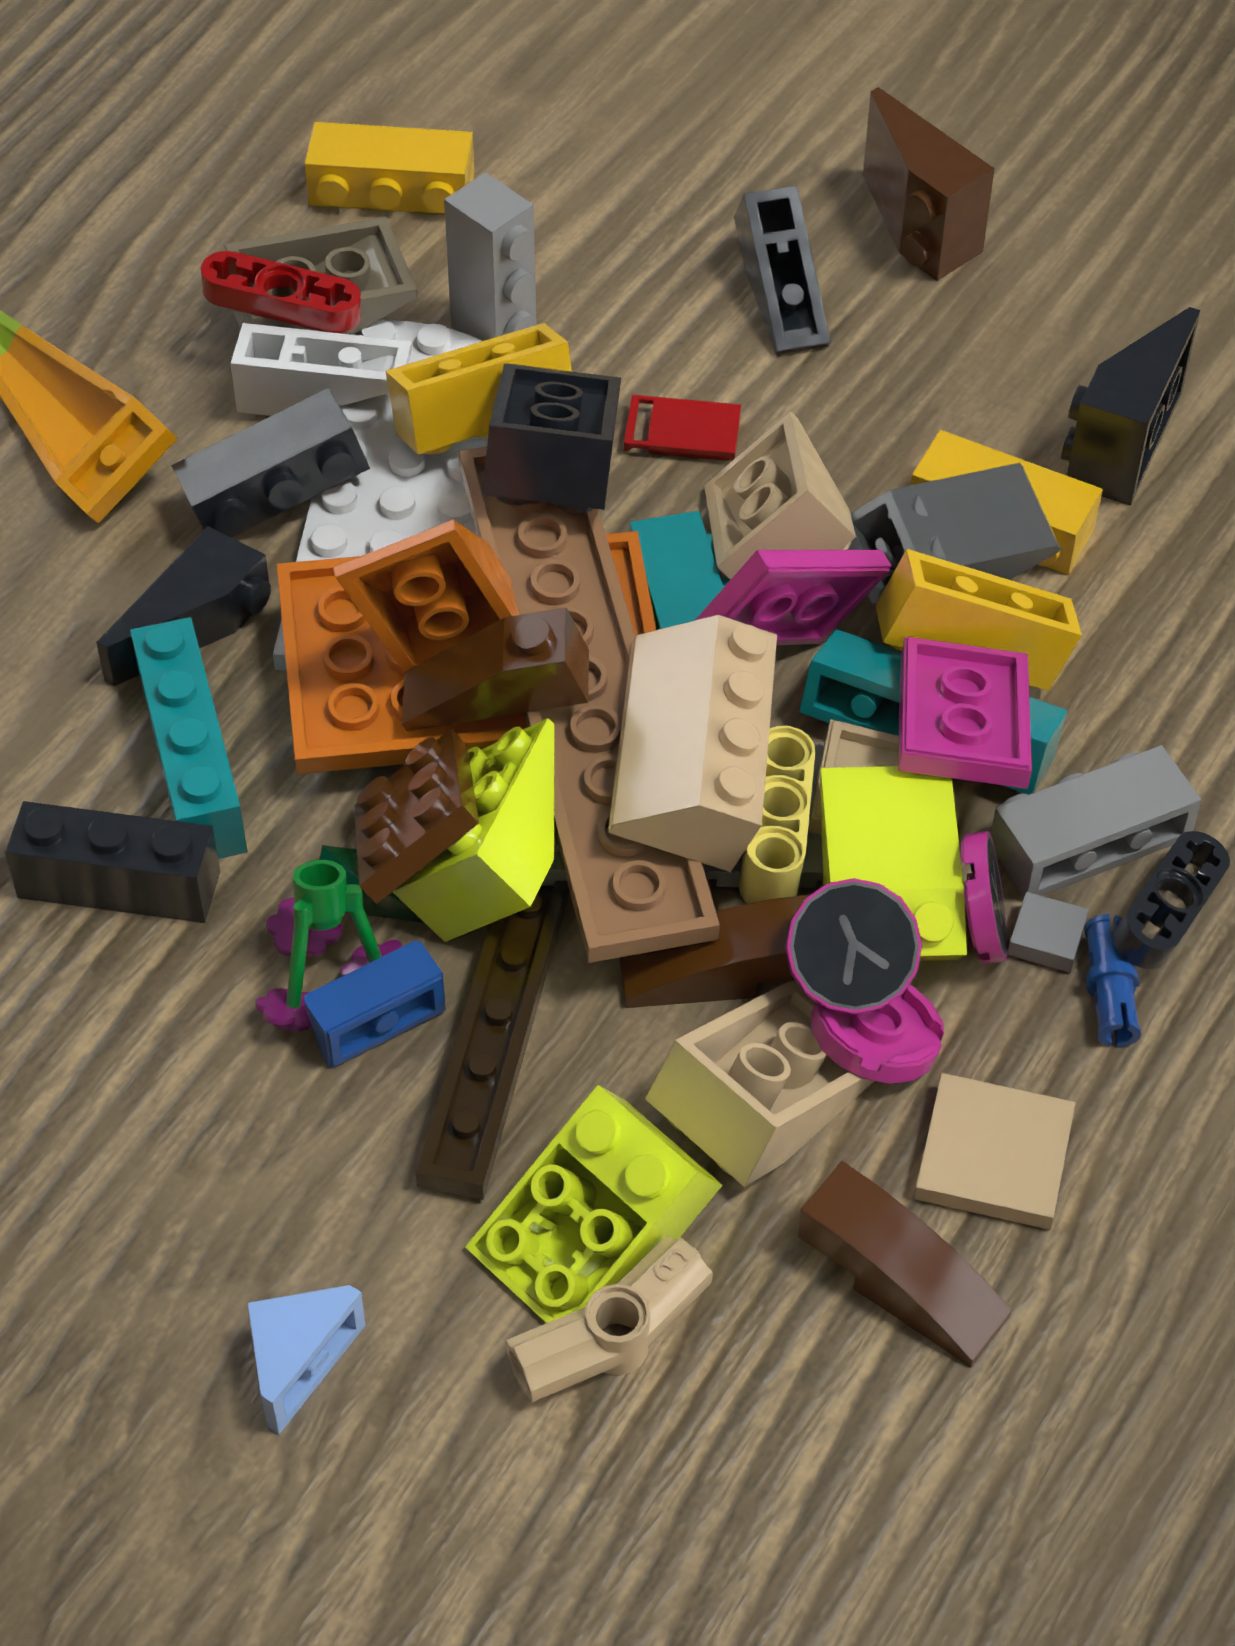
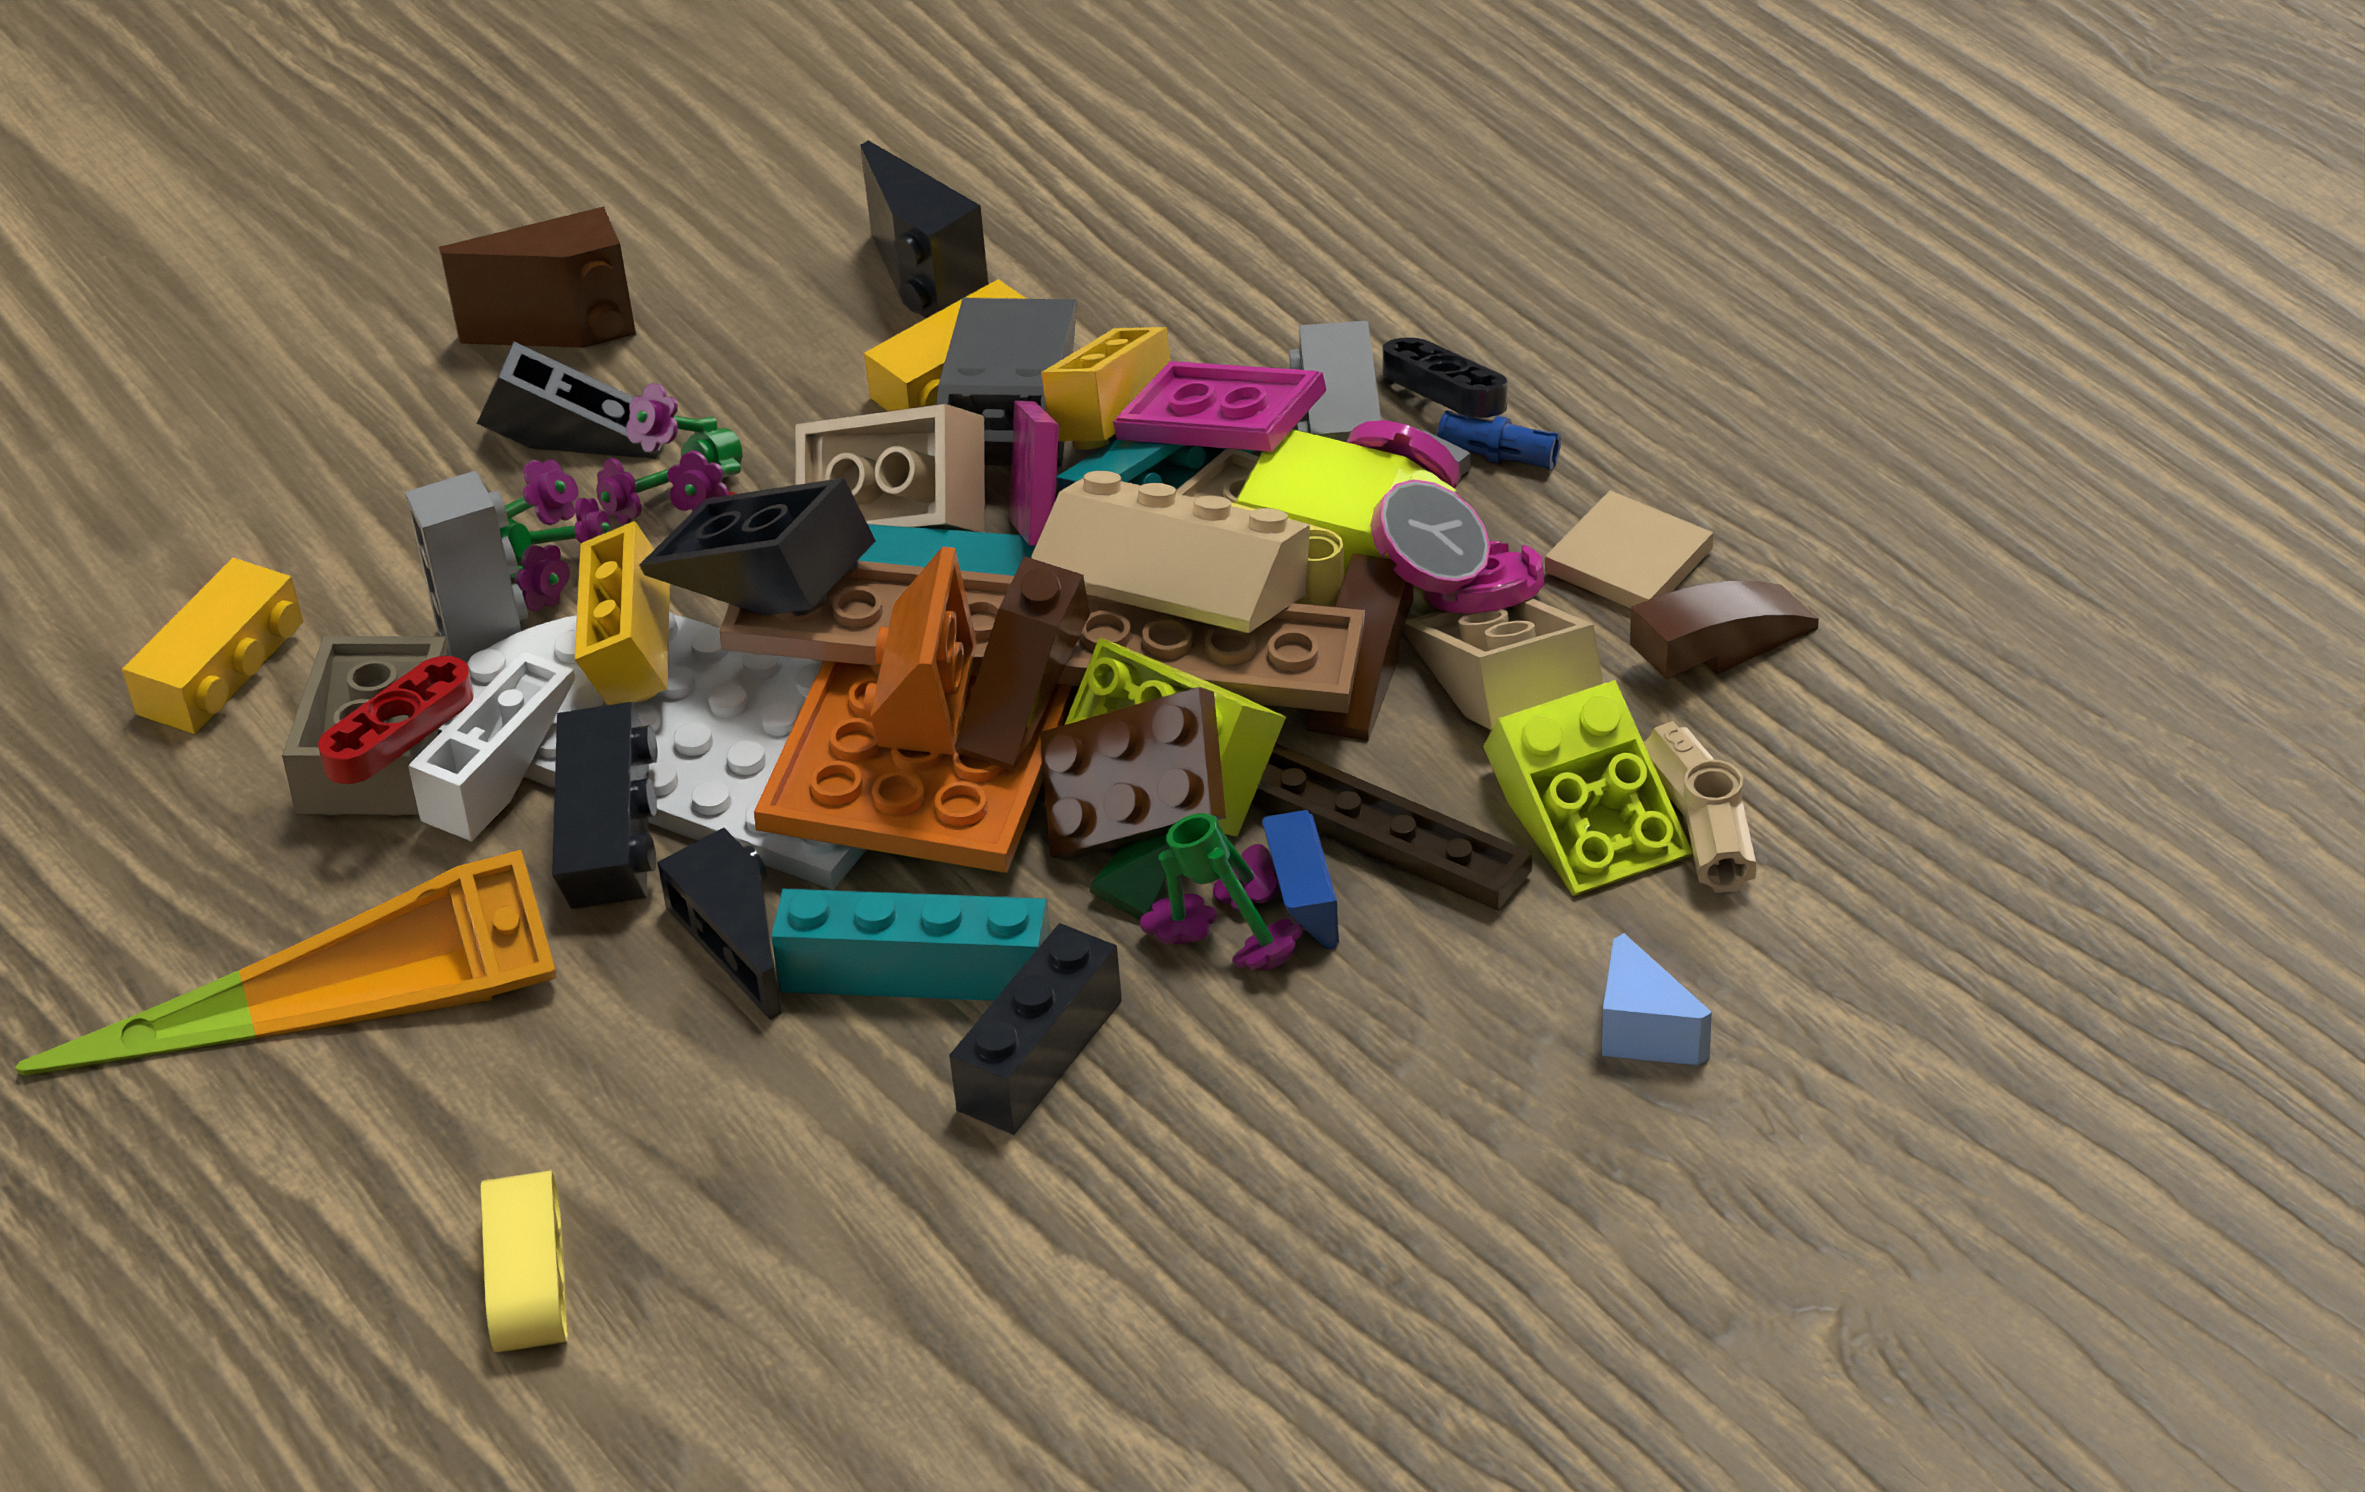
camera: 65 degrees left, 10 degrees down
(591, 289) = (552, 496): none -> magenta plant
(770, 380) = (704, 459): none -> magenta plant

